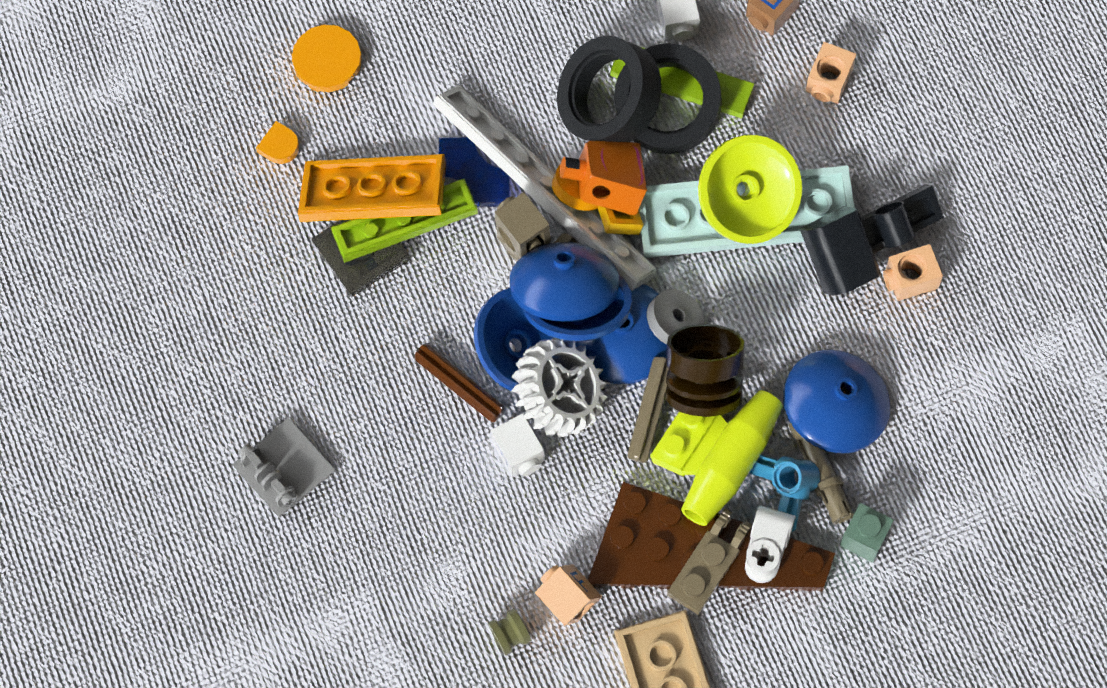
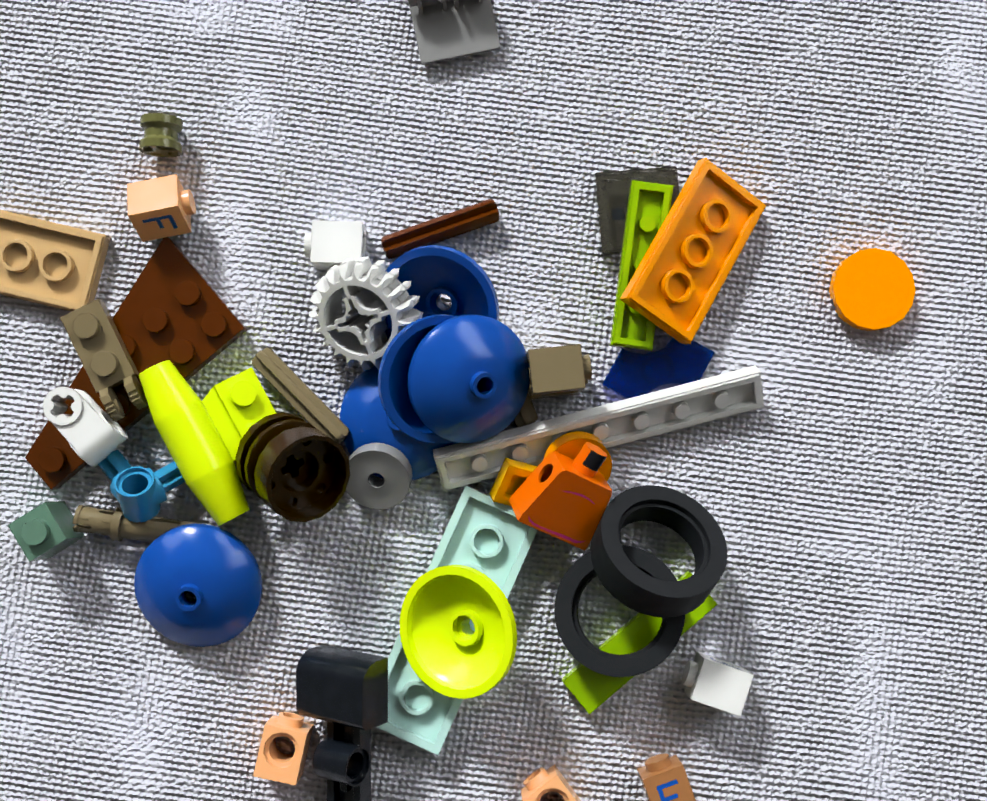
camera: 115 degrees right, 15 degrees up
(279, 144) = (800, 191): light orange tile -> none

